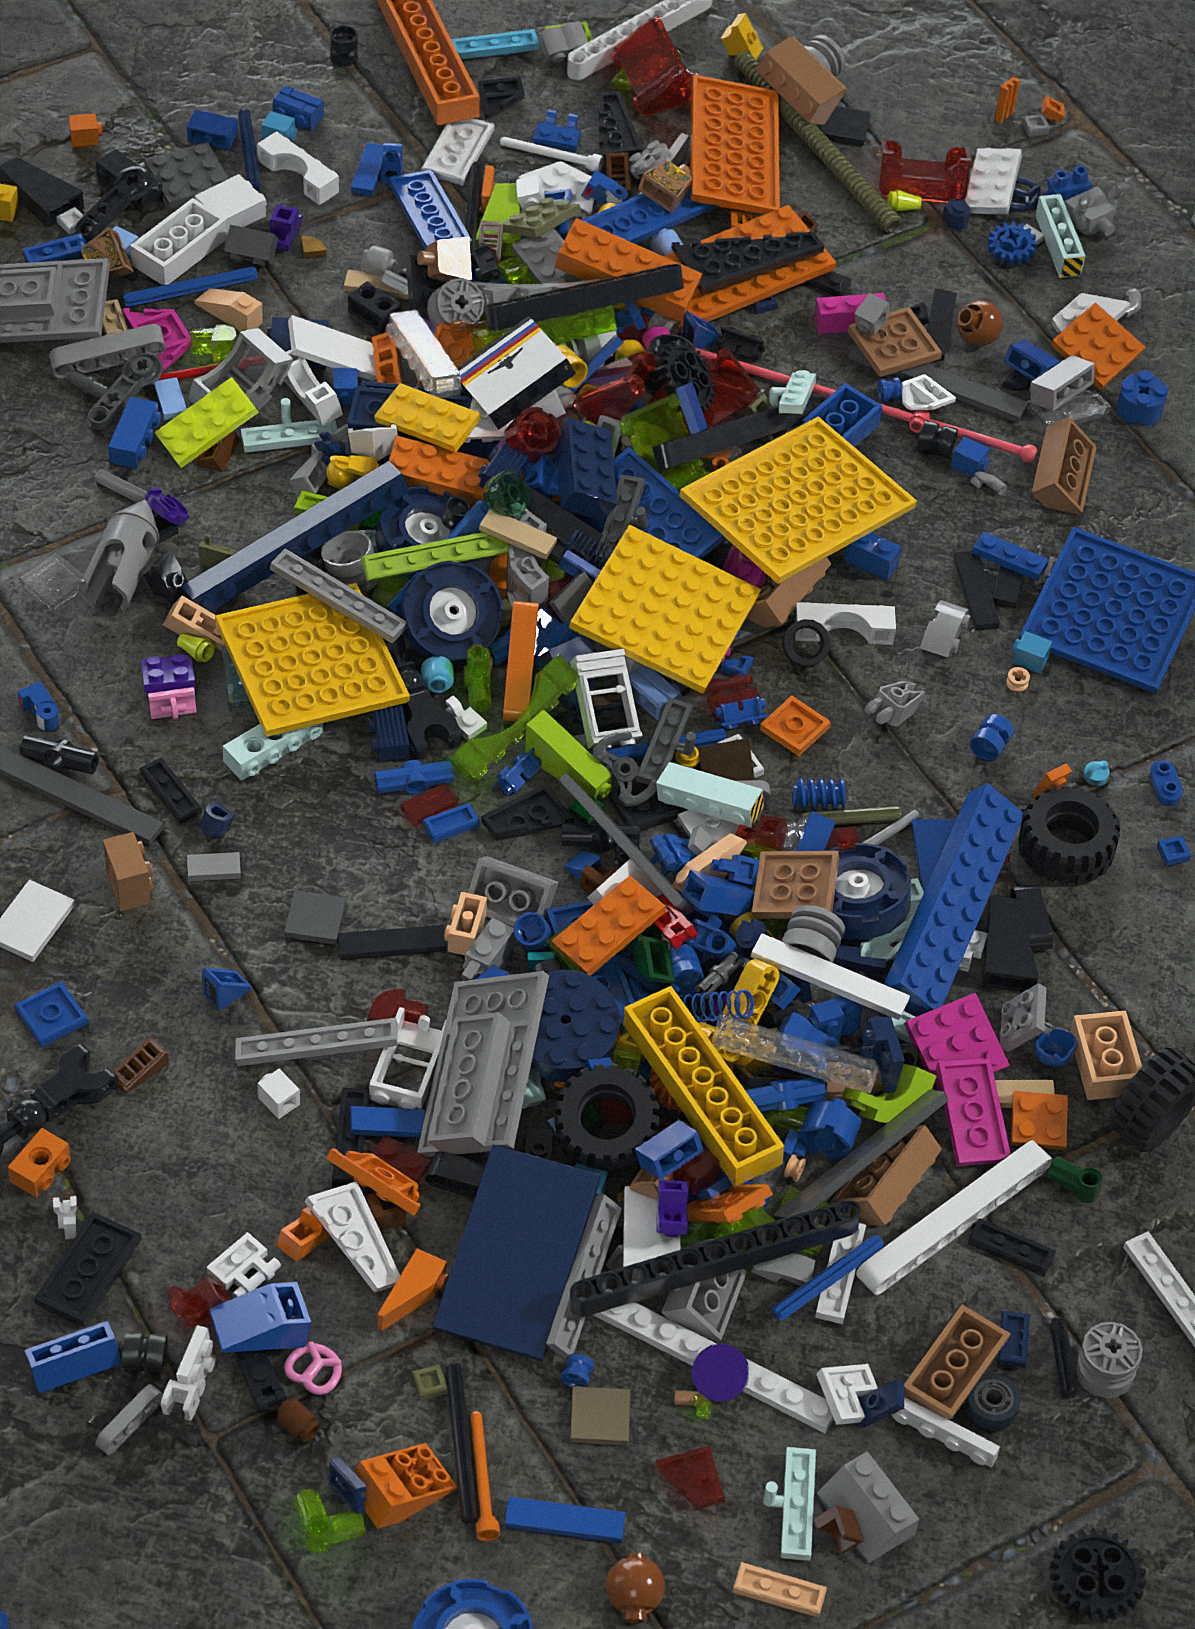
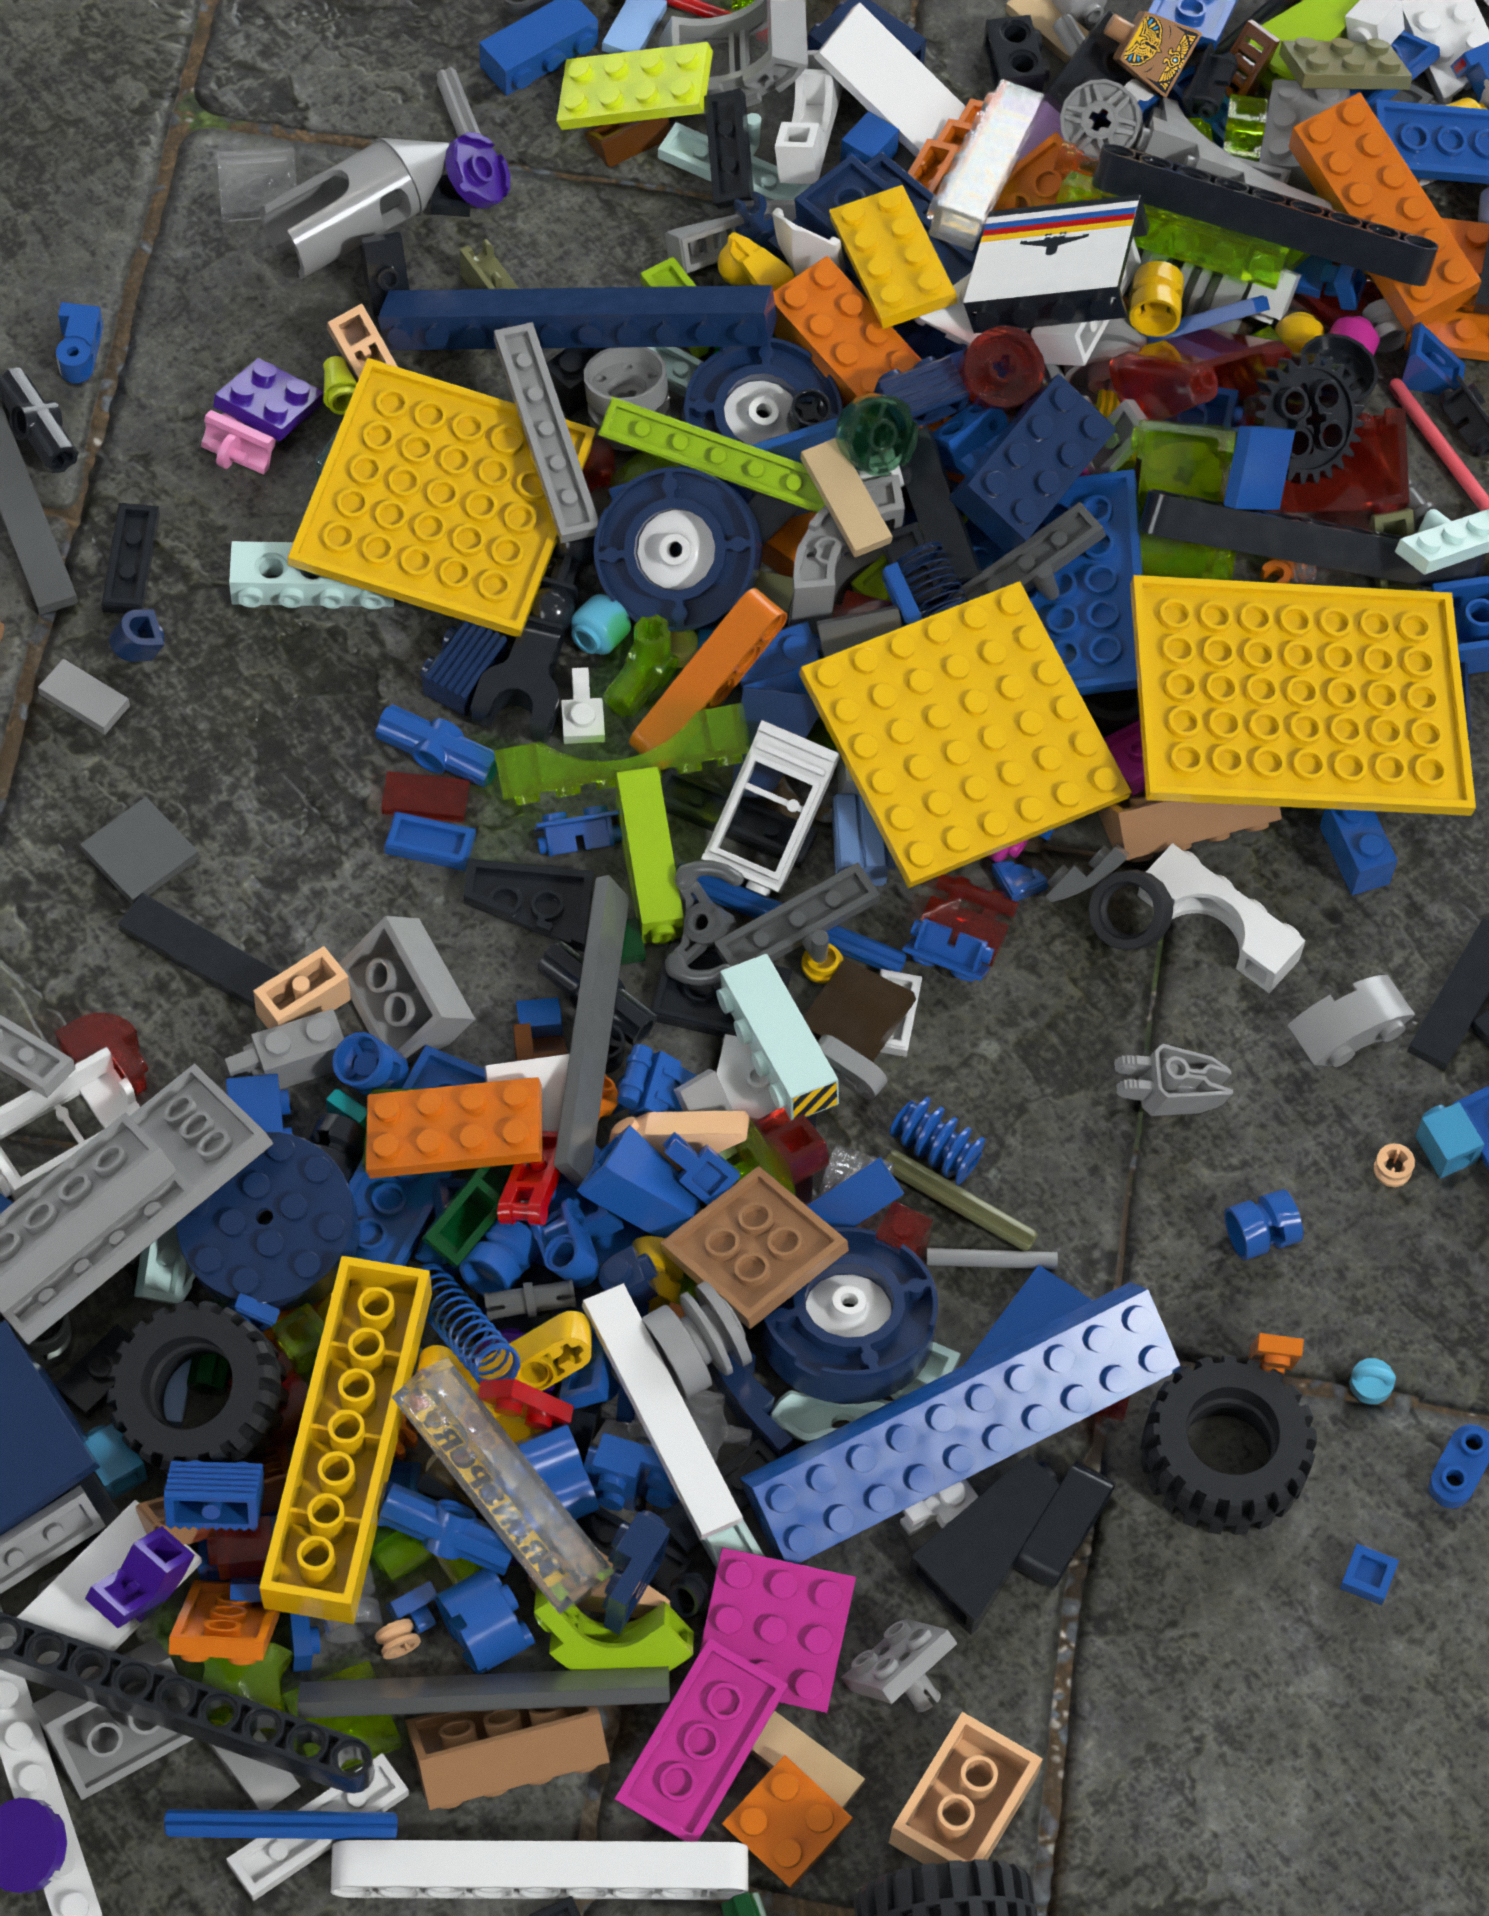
camera: 40 degrees right, 10 degrees up
(285, 422) = (729, 147): none -> black plate
(768, 646) = (1076, 879): none -> dark grey slope
(768, 1013) = (521, 1400): none -> red plate
(795, 725) = (1009, 1018): orange plate -> none
(1055, 1048) = (907, 1735): blue hair -> none

